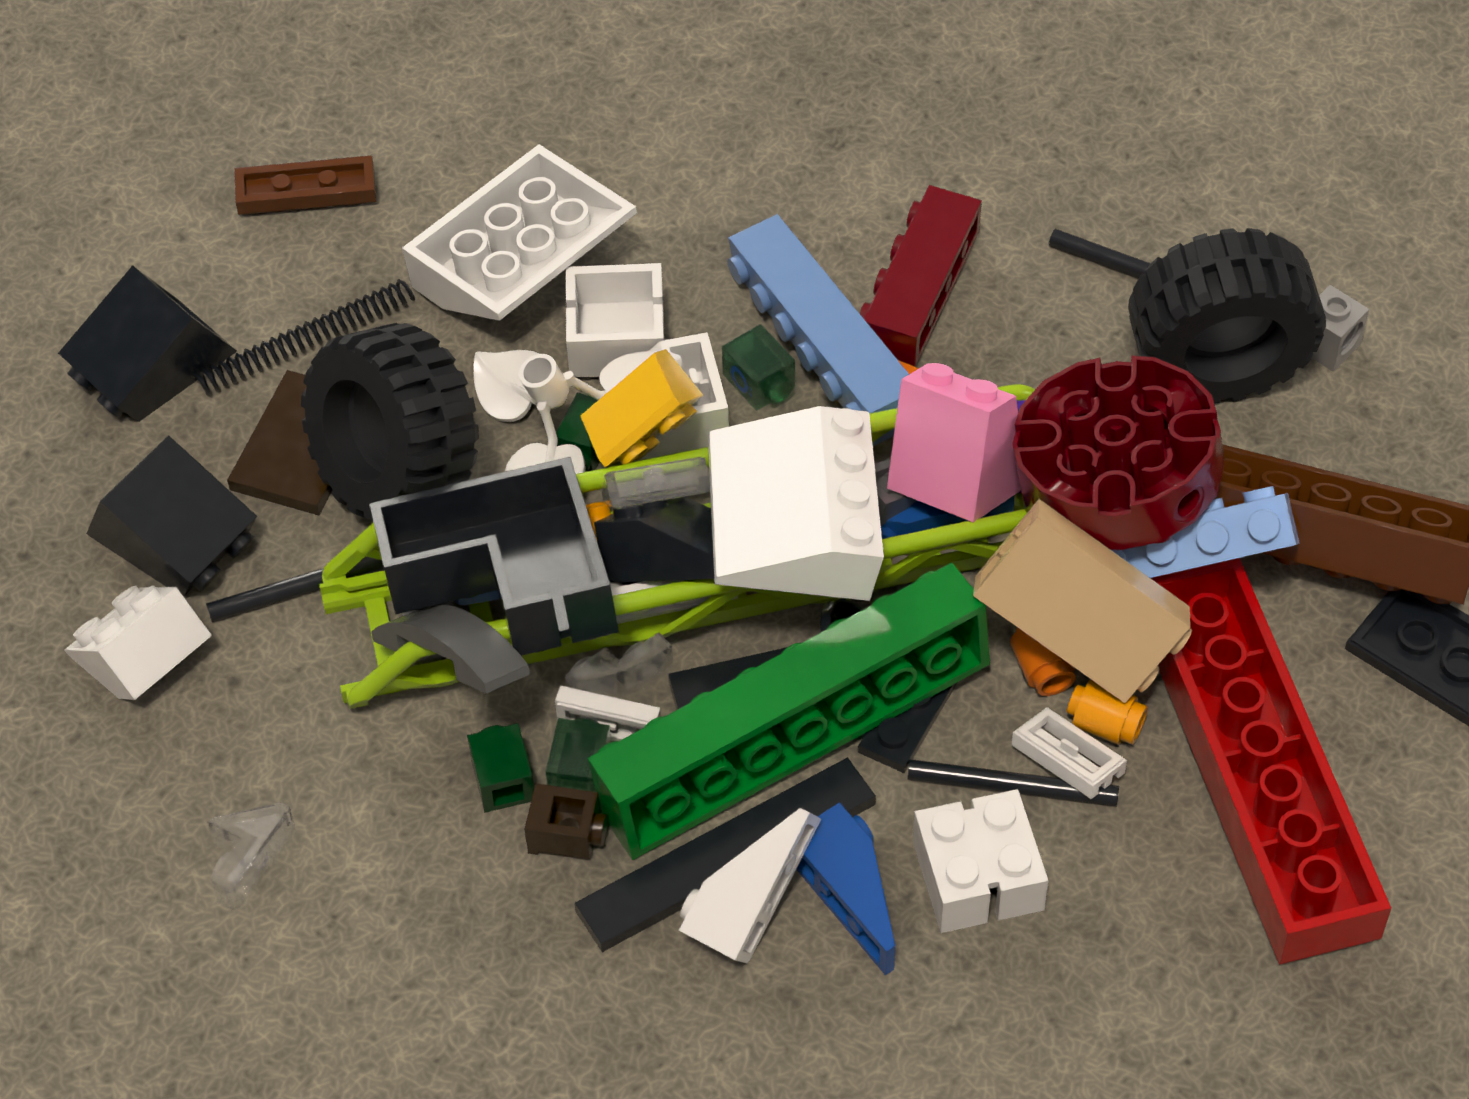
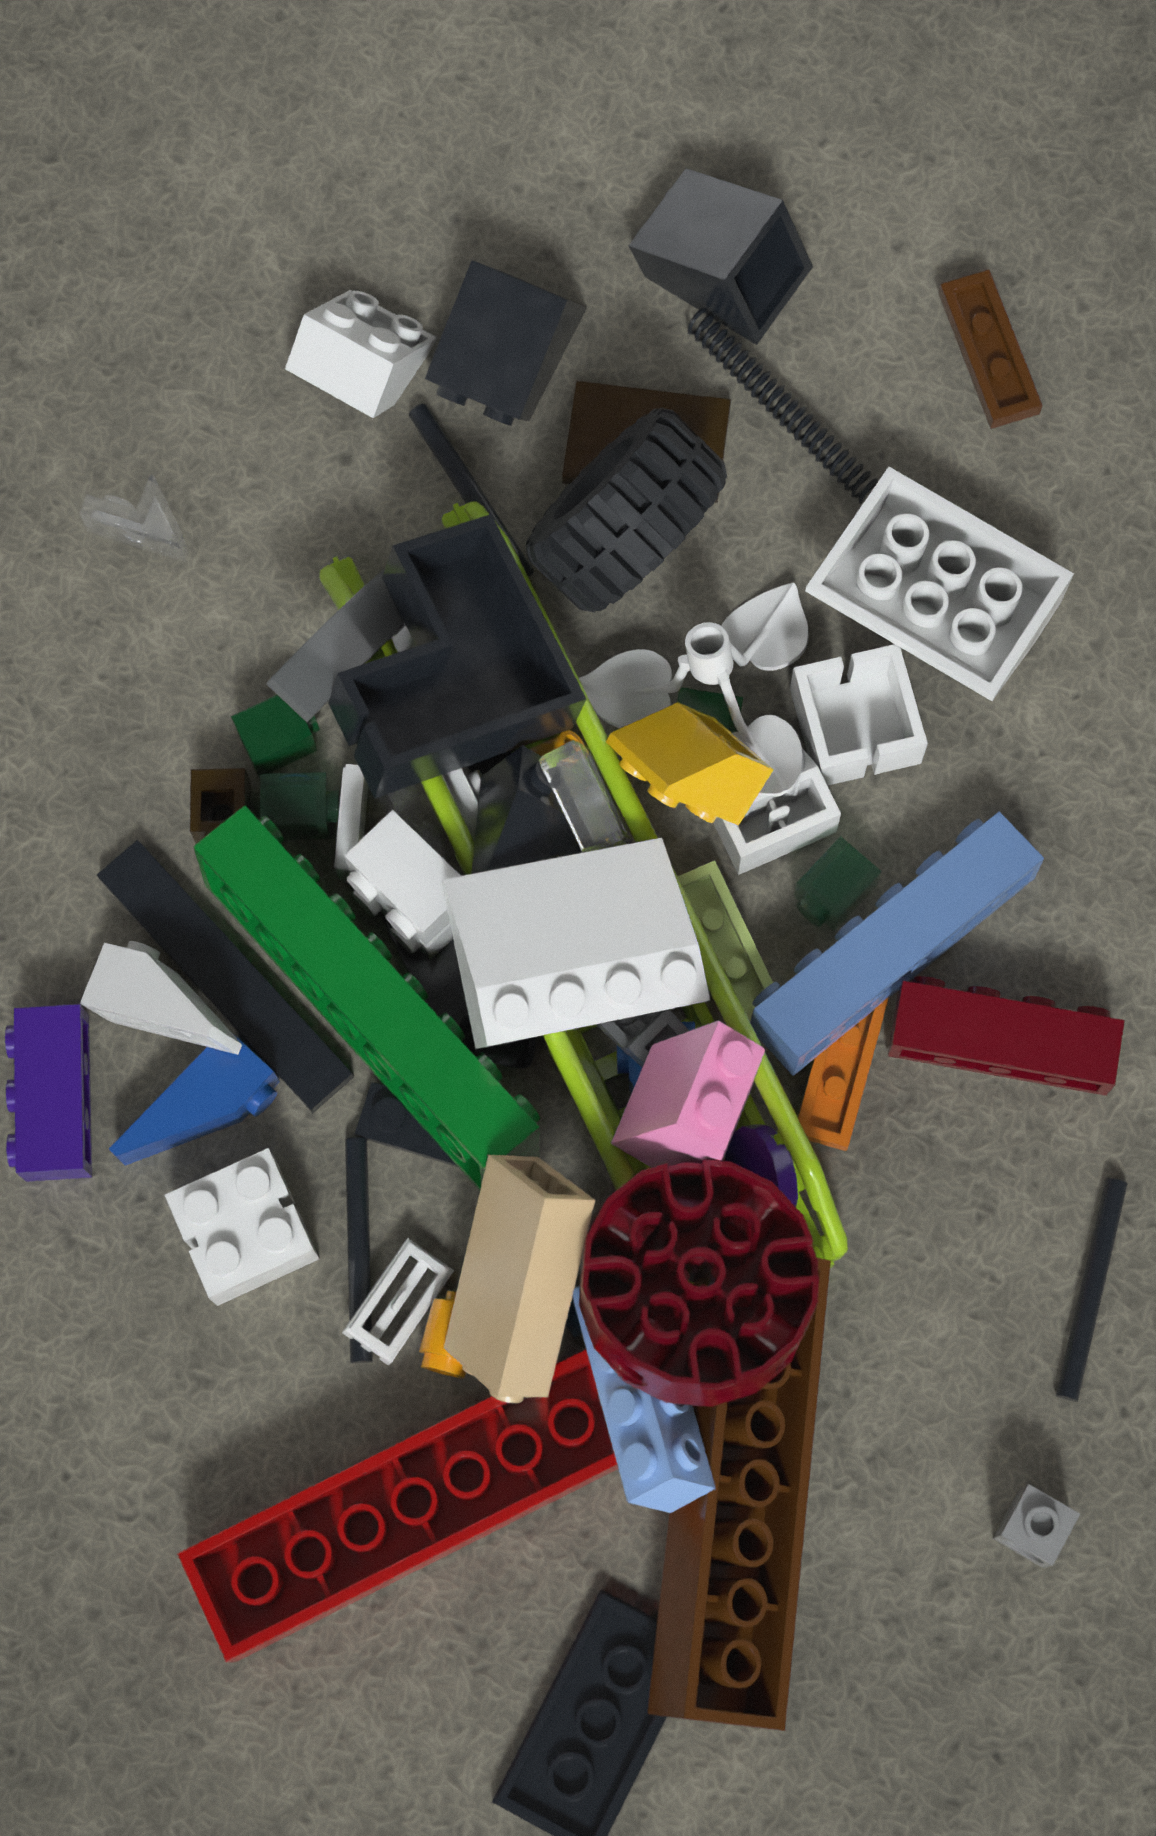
camera: 80 degrees right, 20 degrees up
(690, 648) = (403, 880): none -> white piece
(814, 1009) = (50, 1093): none -> dark purple brick
(1230, 311) = (975, 1390): black tyre -> none

